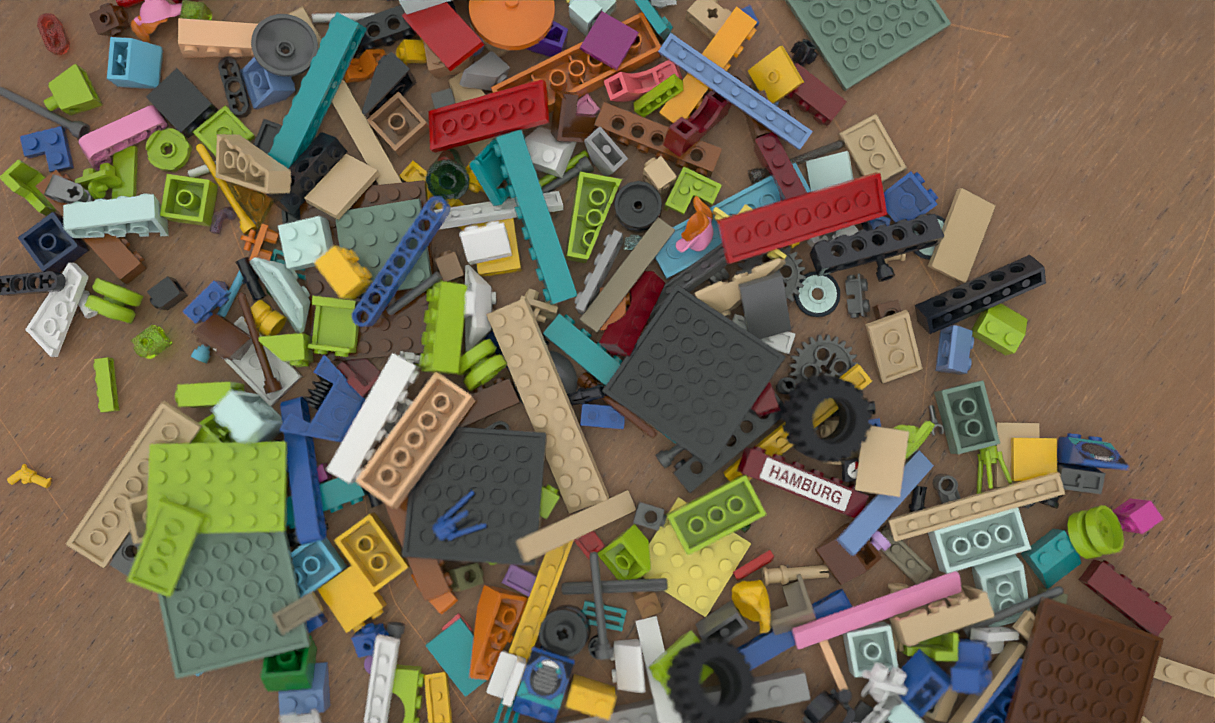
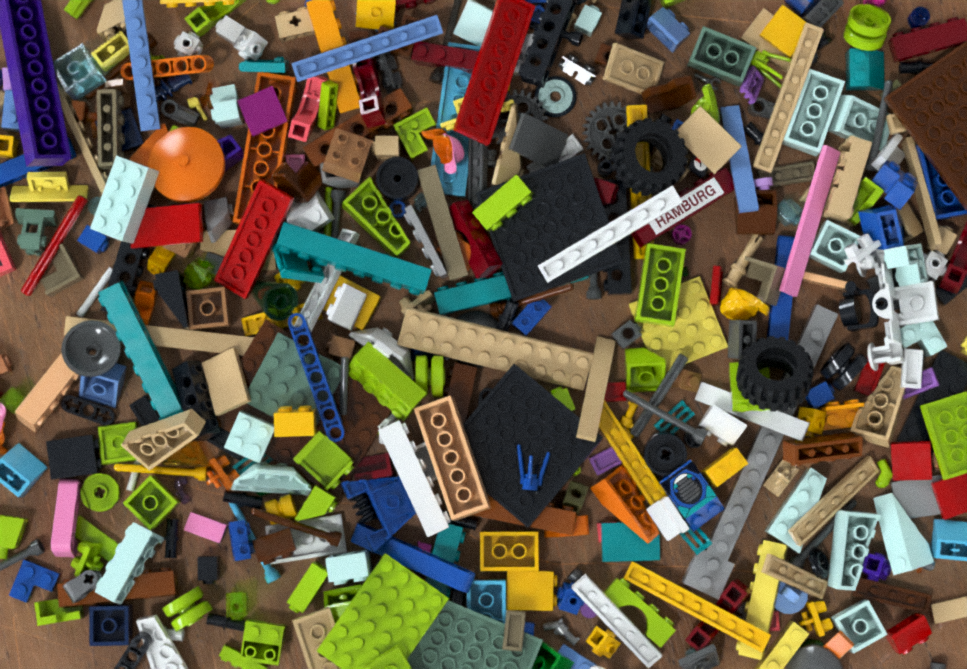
camera: 50 degrees left, 0 degrees up
(127, 335) = (225, 622): none -> black axle
(134, 389) = (263, 642): none -> lime slope
(171, 242) = (171, 538): none -> black pin
(203, 264) = (205, 527): none -> bright pink tile
(338, 652) = (561, 629): none -> light grey piece
(351, 700) = (603, 642): none -> yellow brick
(424, 93) = (198, 273): none -> clear neon green brick
(570, 573) = (626, 421): none -> yellow piece
(606, 224) = (402, 208): none -> blue bush
(624, 143) = (347, 155): none -> medium nougat brick
(684, 316) = (503, 203): none -> lime brick
(729, 435) = (610, 234): none -> white plate
(733, 122) = (385, 64): none -> dark grey hinge
(780, 499) = (683, 231): none -> magenta wheel
(870, 584) = (789, 212): none -> clear light blue head
(895, 396) = (670, 95): none -> reddish brown panel
(909, 272) = (588, 20): none -> light aqua brick
(962, 460) = (750, 82): none -> medium lavender tile
(1089, 603) = (913, 67): none -> black pin
(1133, 571) = (915, 20): none -> clear blue wheel

